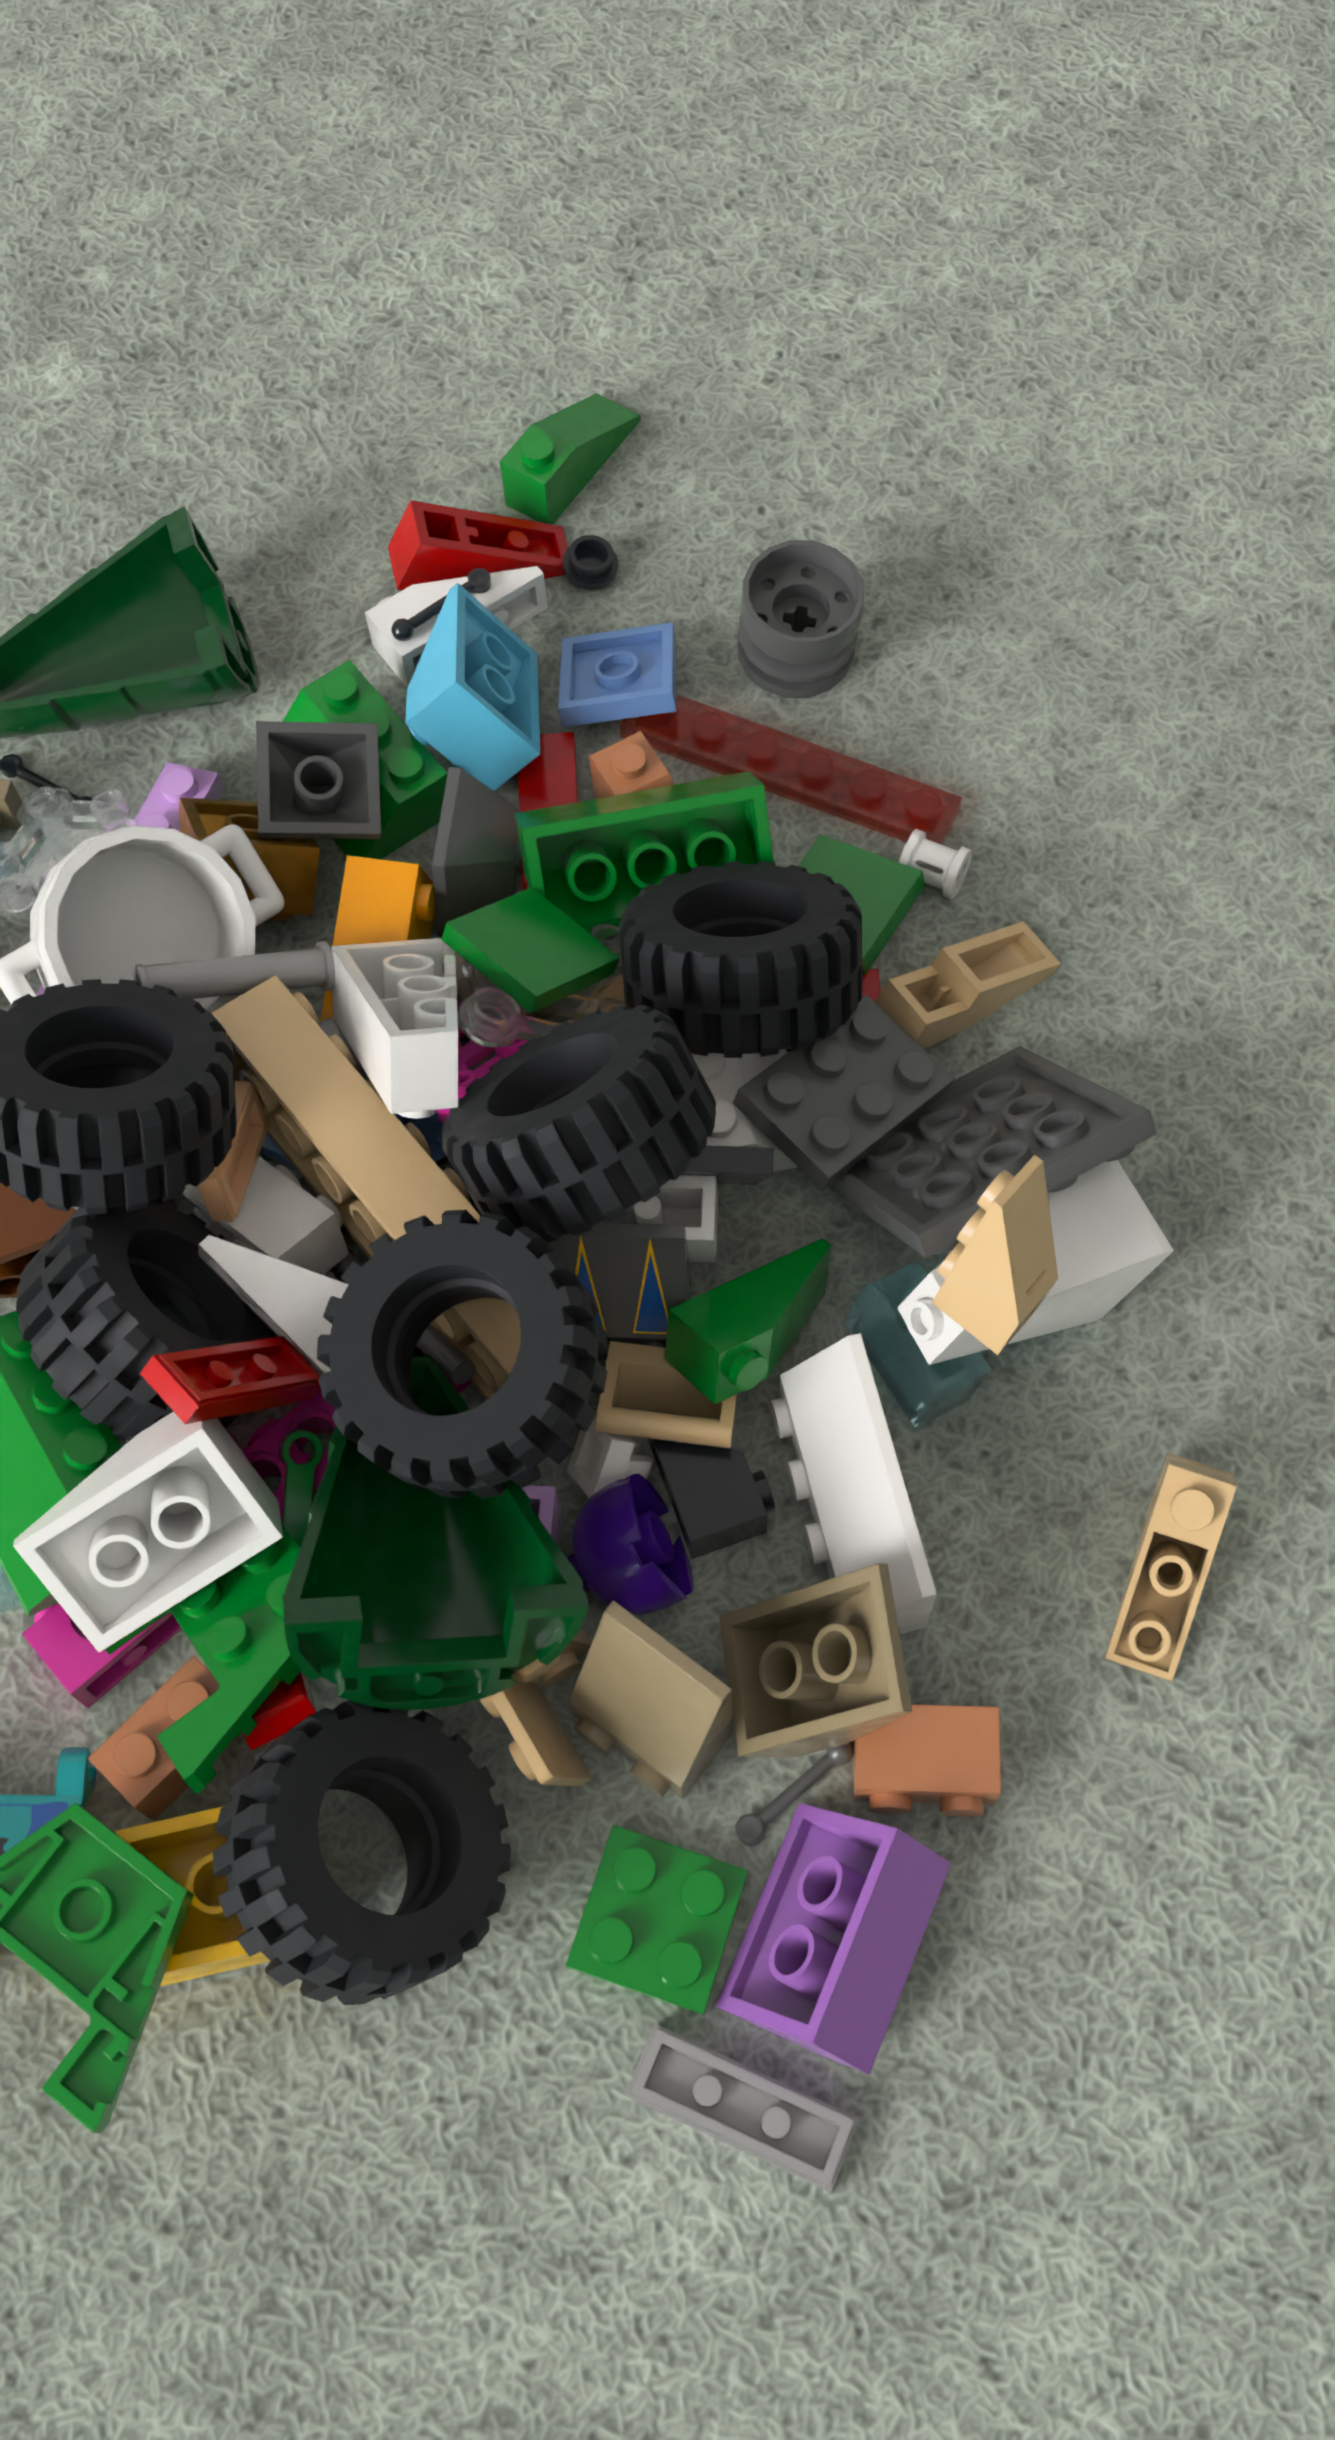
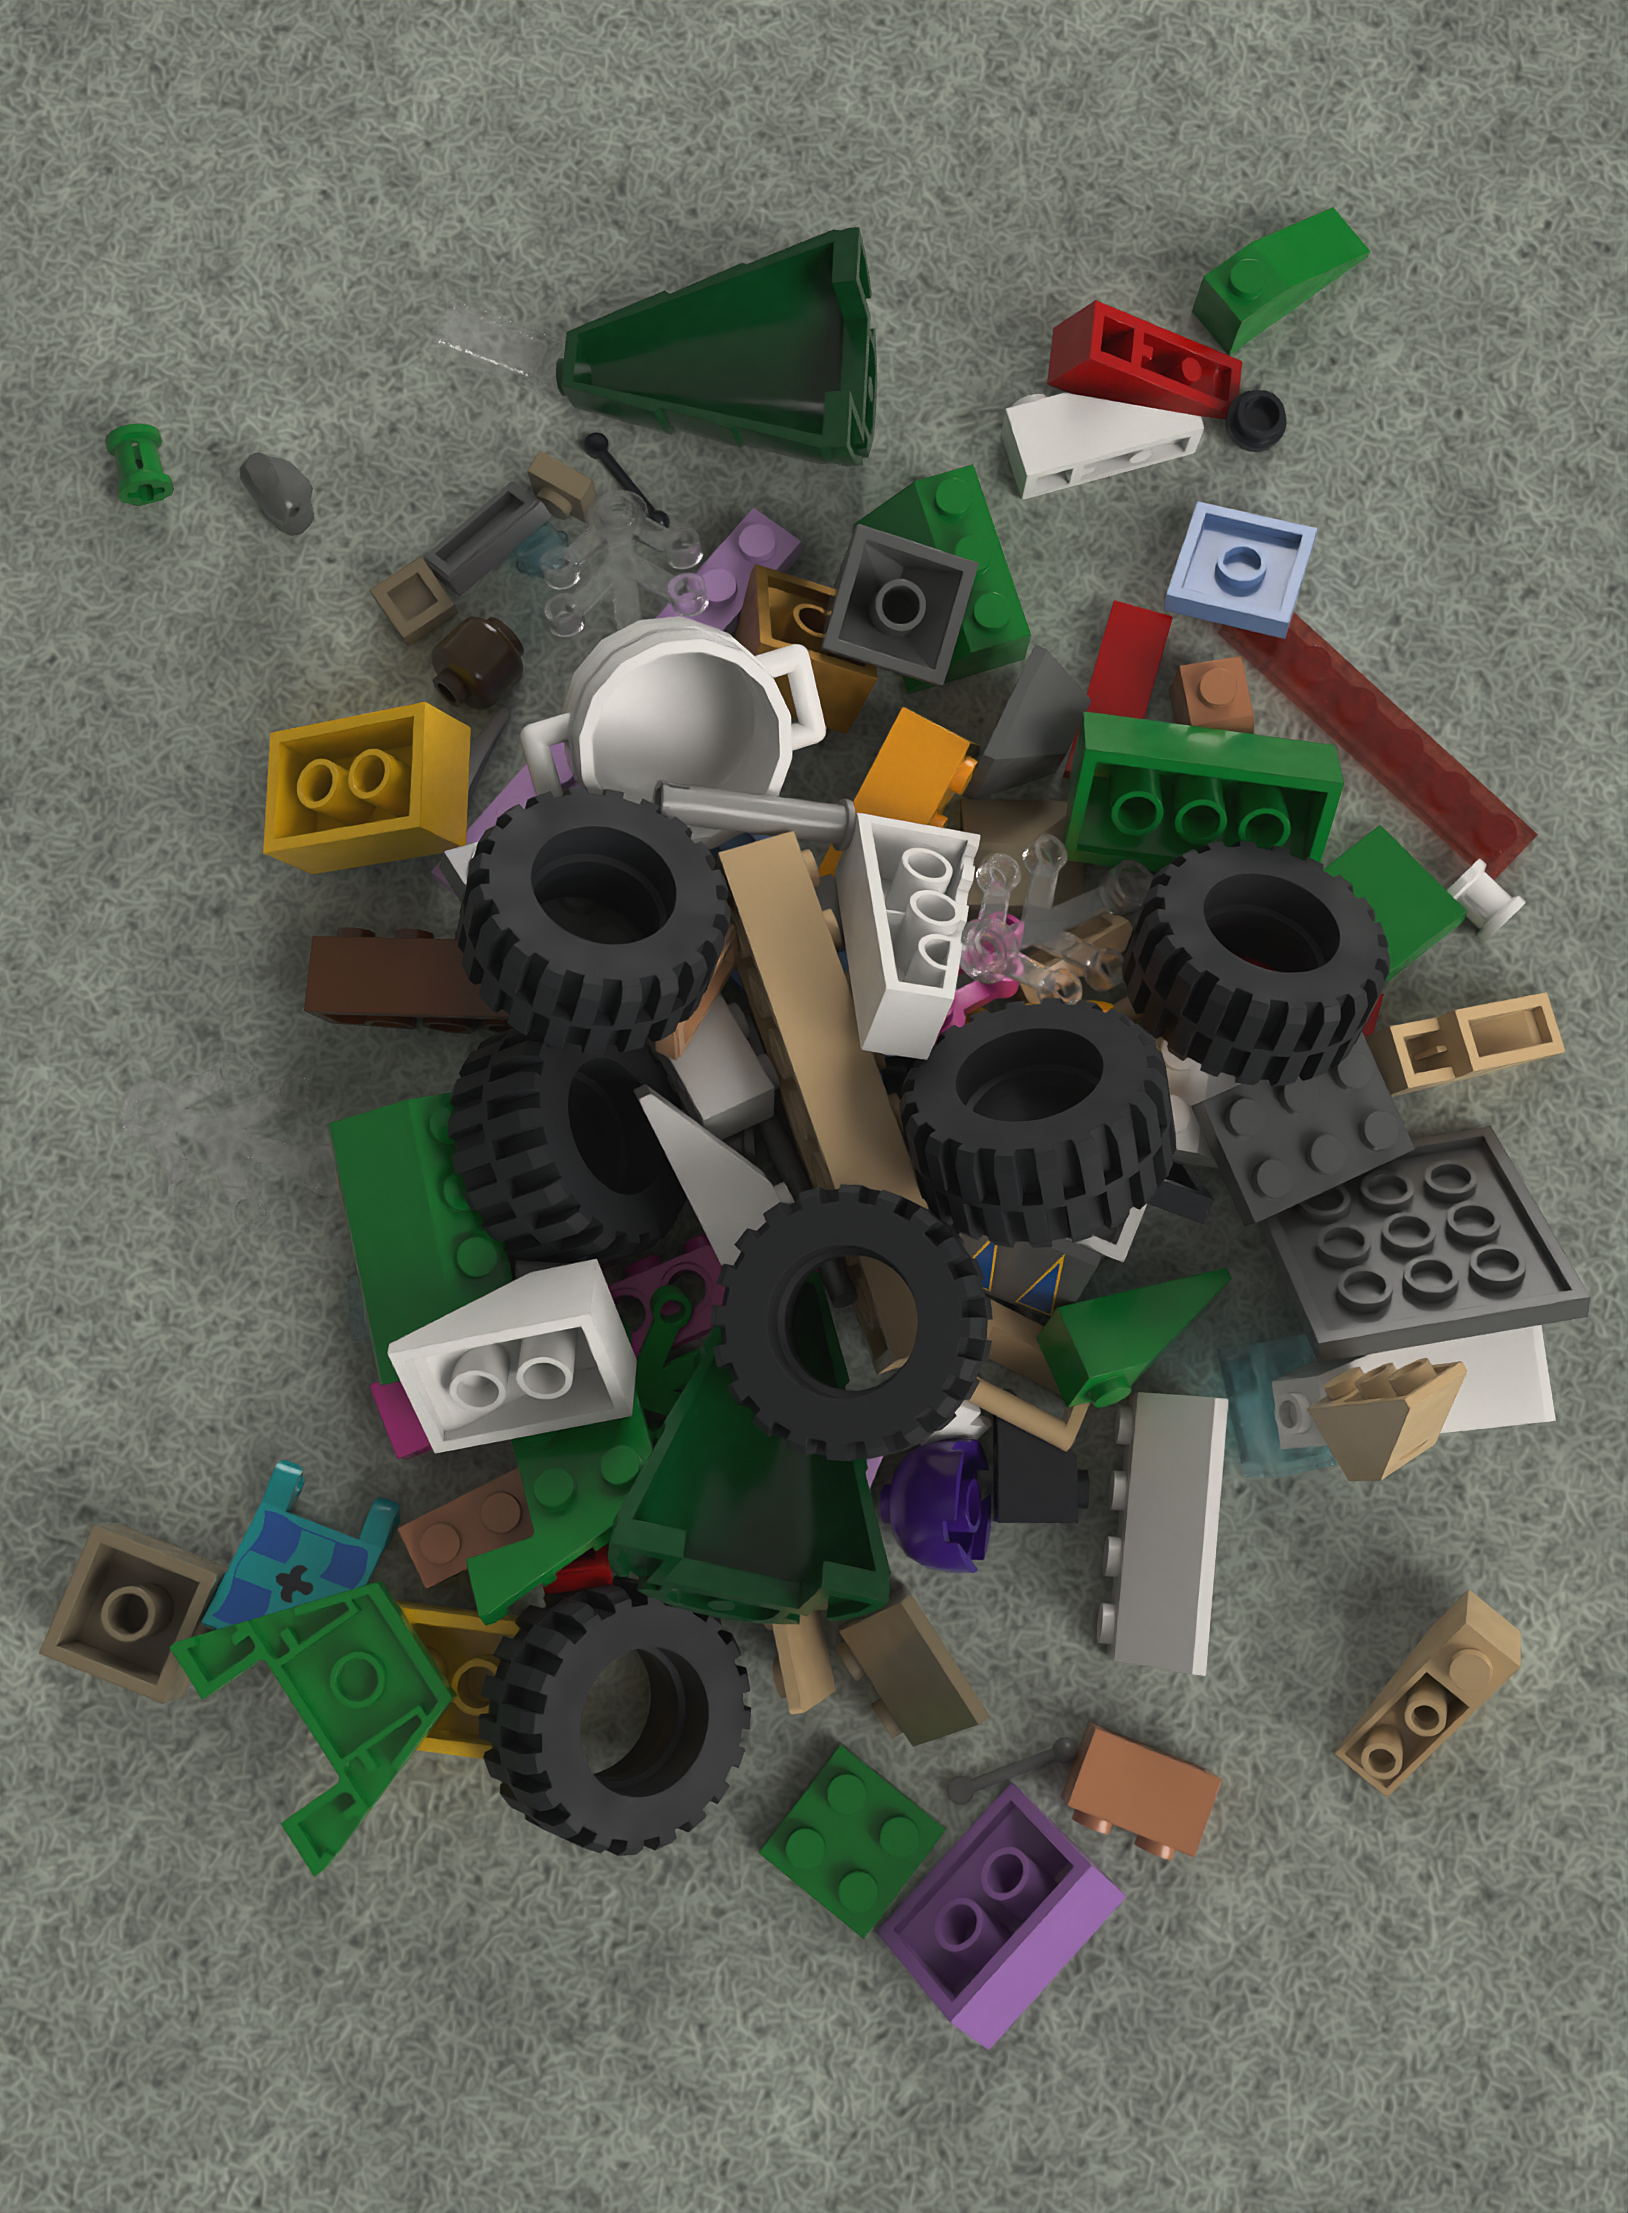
camera: 15 degrees right, 15 degrees up
(231, 1378) = (631, 1252): red tile -> none
(403, 629) = (1133, 417): black hinge -> none
(476, 692) = (1090, 547): medium azure slope -> none
(530, 949) = (1050, 880): green tile -> none
(742, 2107) = (869, 2027): light grey tile -> none
(799, 618) = (1471, 552): dark grey wheel -> none
(815, 1666) = (1074, 1693): dark tan slope -> none

